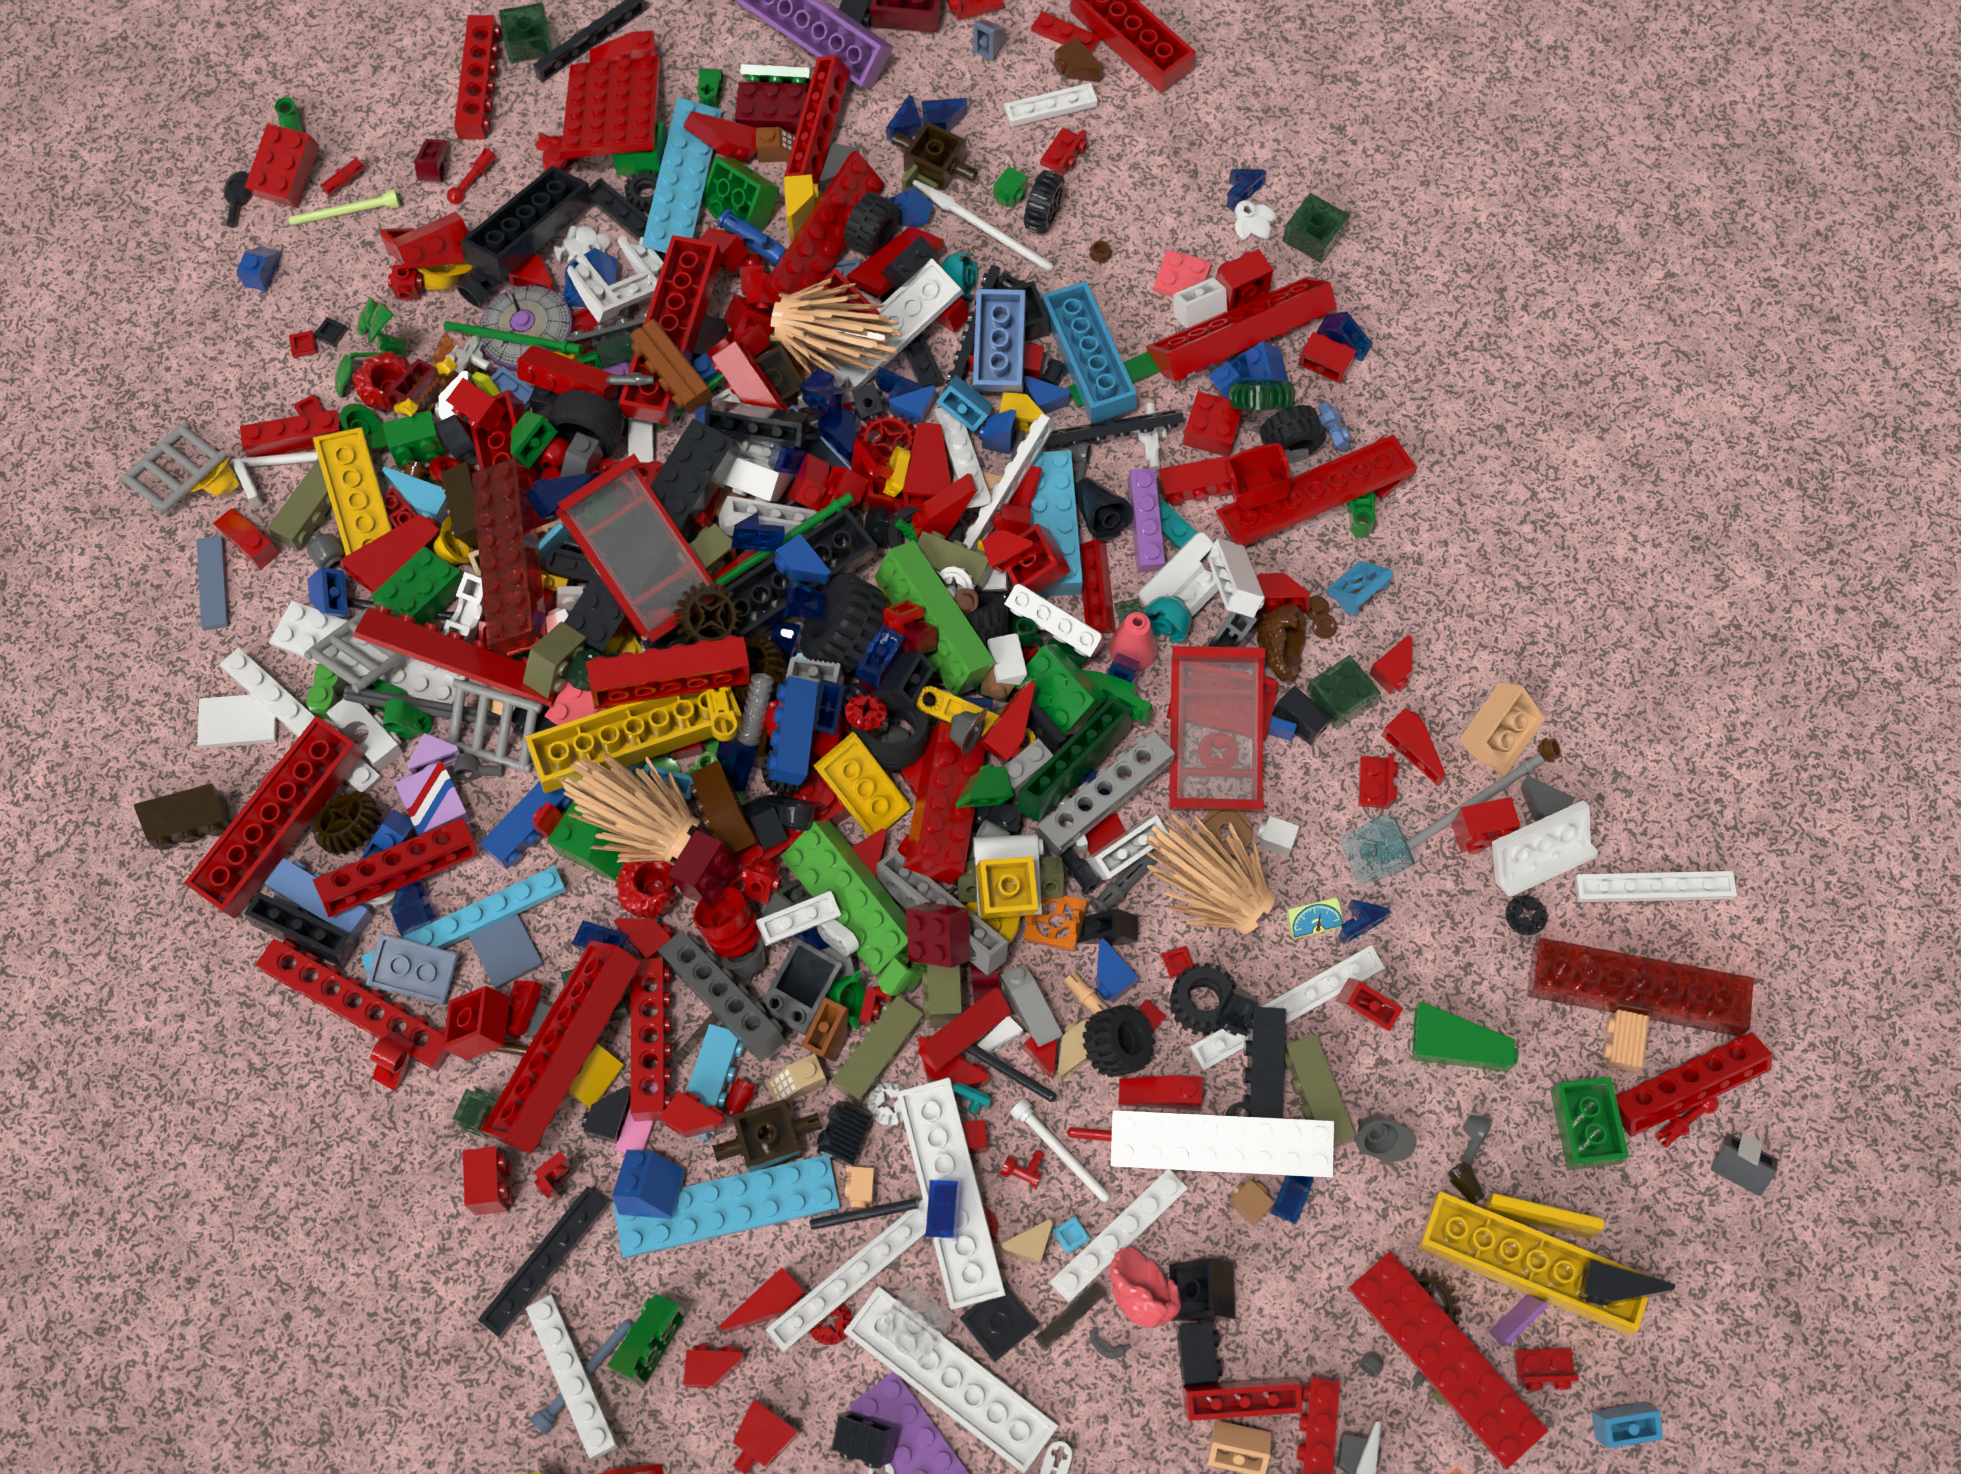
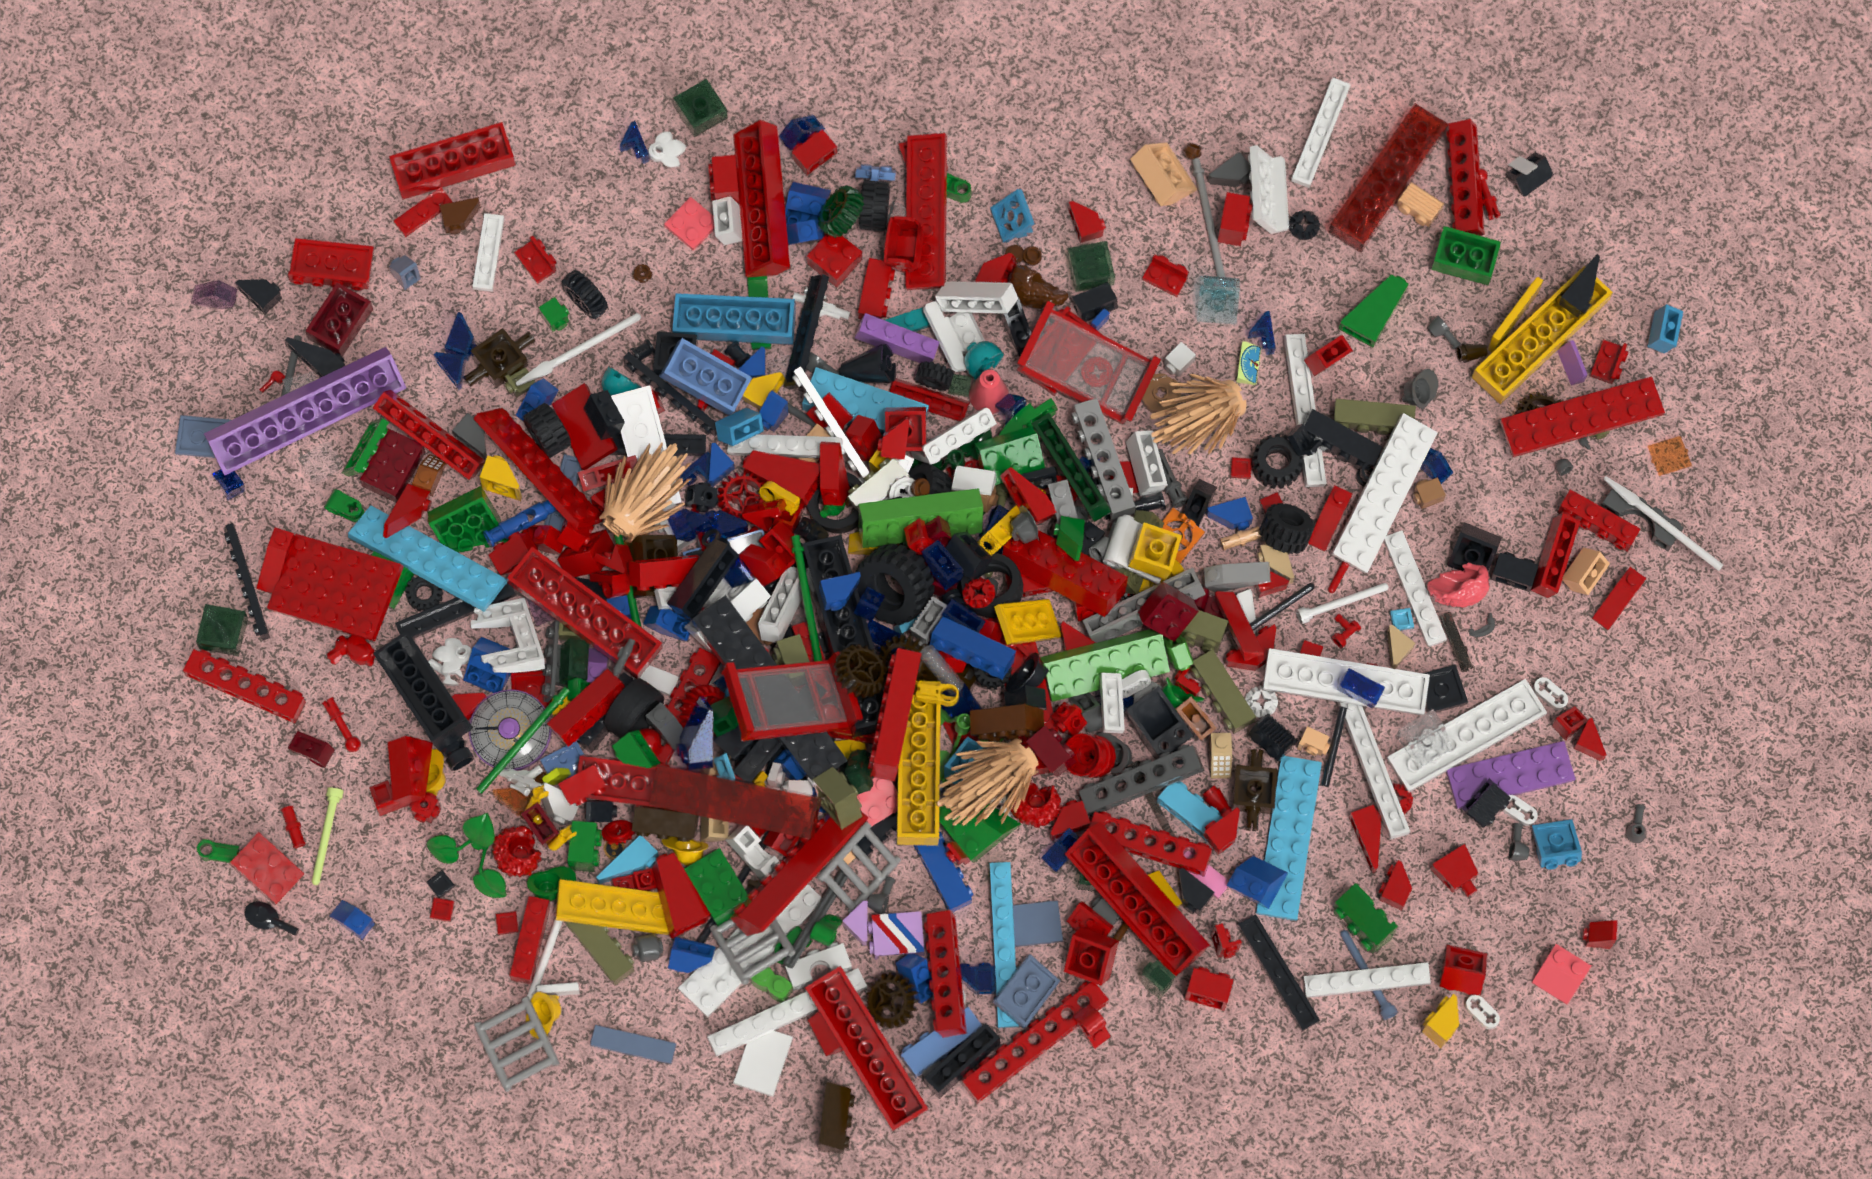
camera: 70 degrees left, 5 degrees up
(246, 538) = (604, 1006): red slope -> none
(415, 469) = (608, 855): reddish brown plate -> none
(671, 366) = (630, 621): dark orange brick -> none
(754, 536) = (803, 613): clear blue slope -> none
(972, 1095) = (1285, 641): teal piece -> none
(1122, 576) = (934, 376): none -> black tyre
(1413, 741) = (1147, 237): red slope -> none

